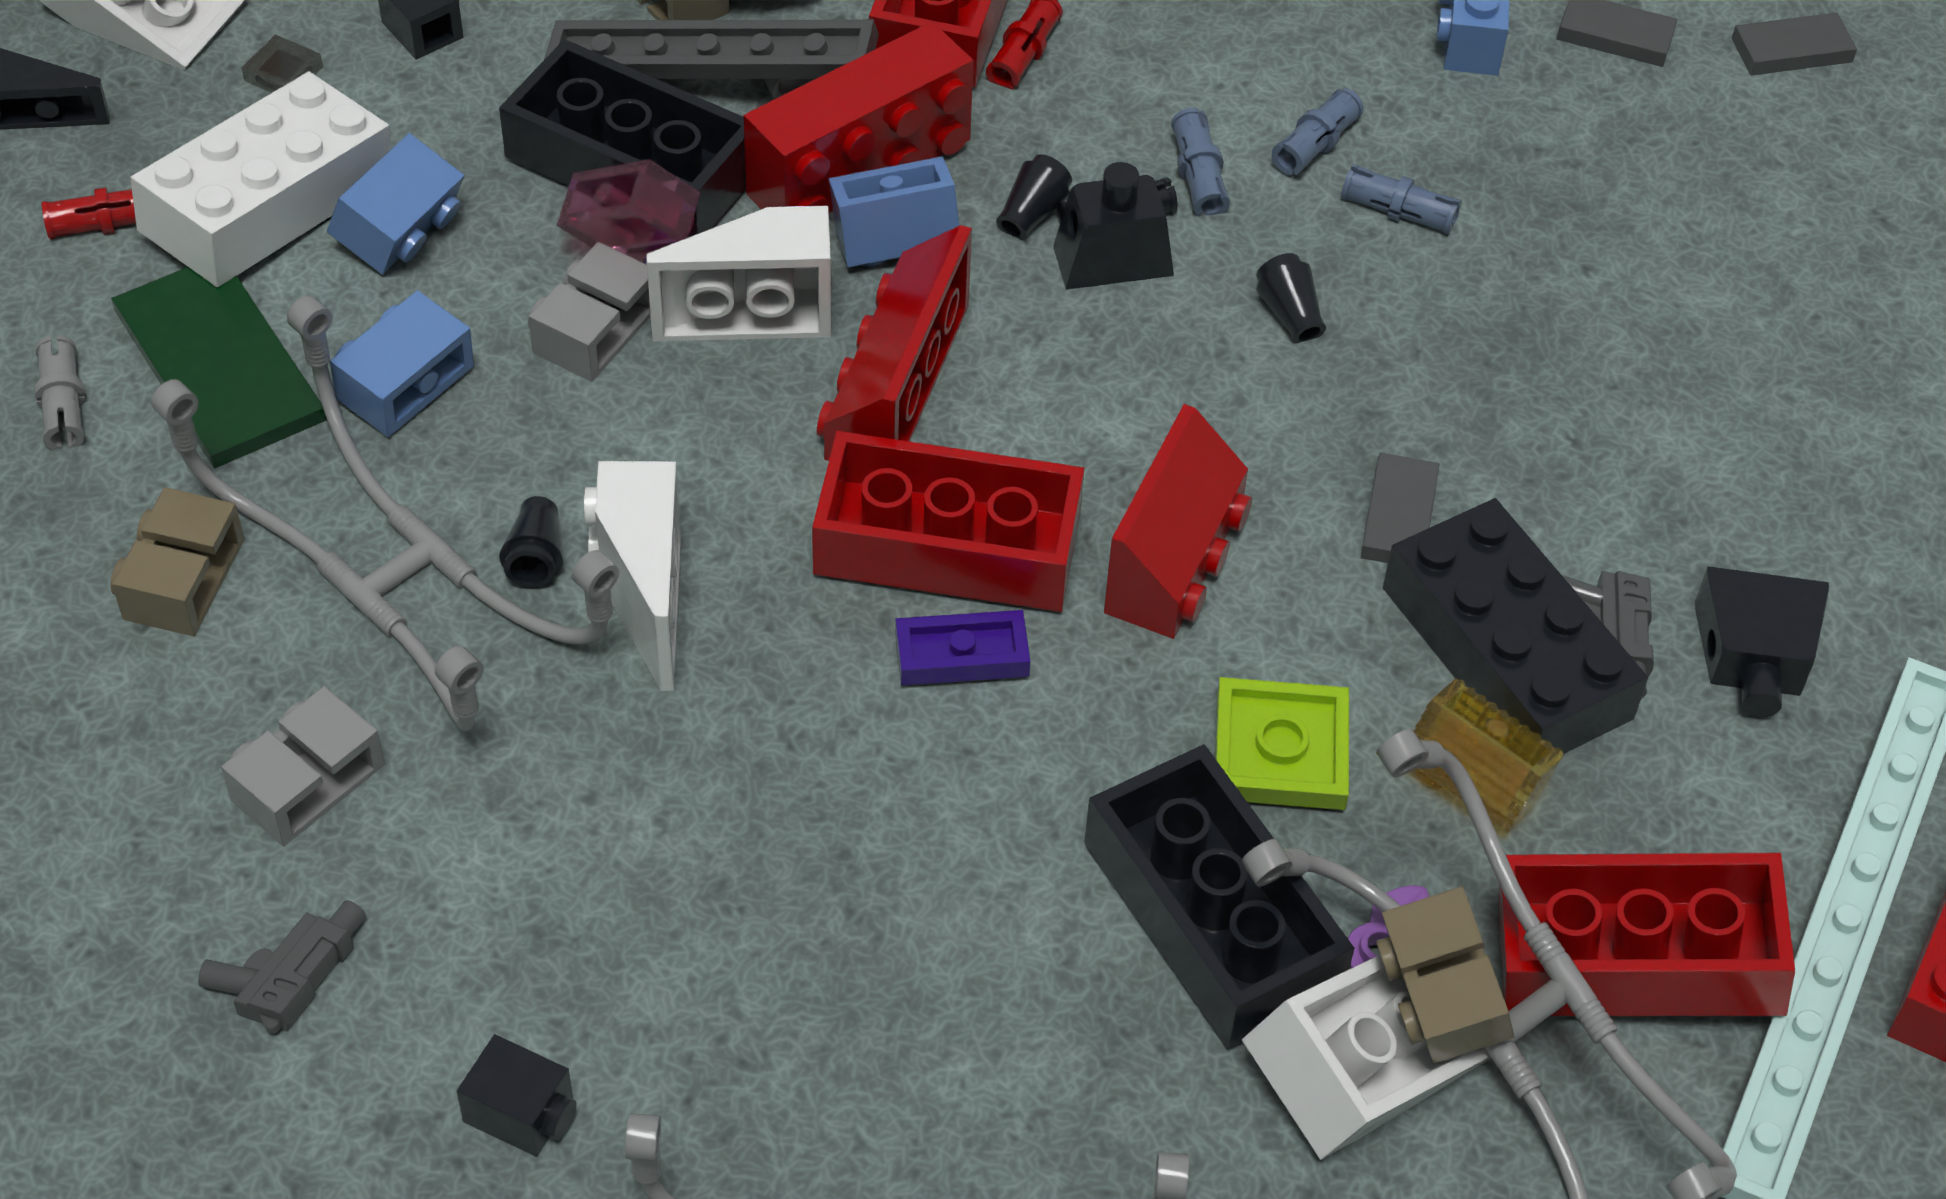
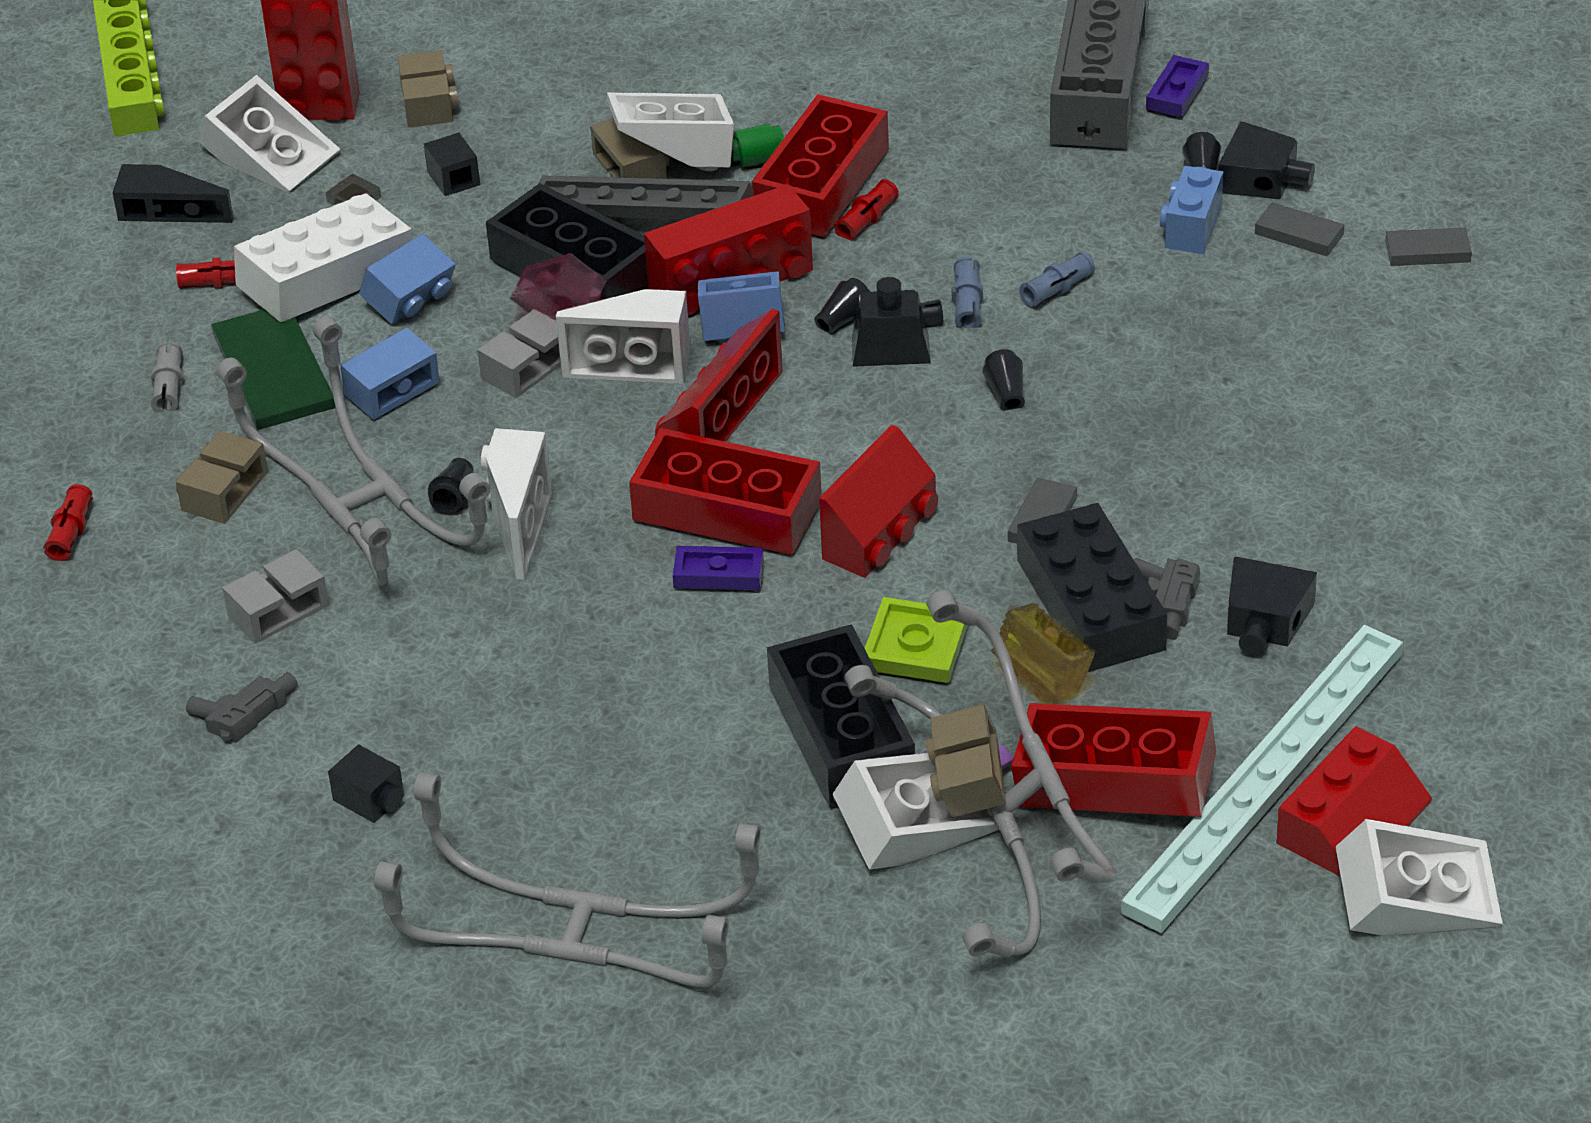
camera: 15 degrees right, 10 degrees down
(1401, 199) = (1104, 325): sand blue pin -> none

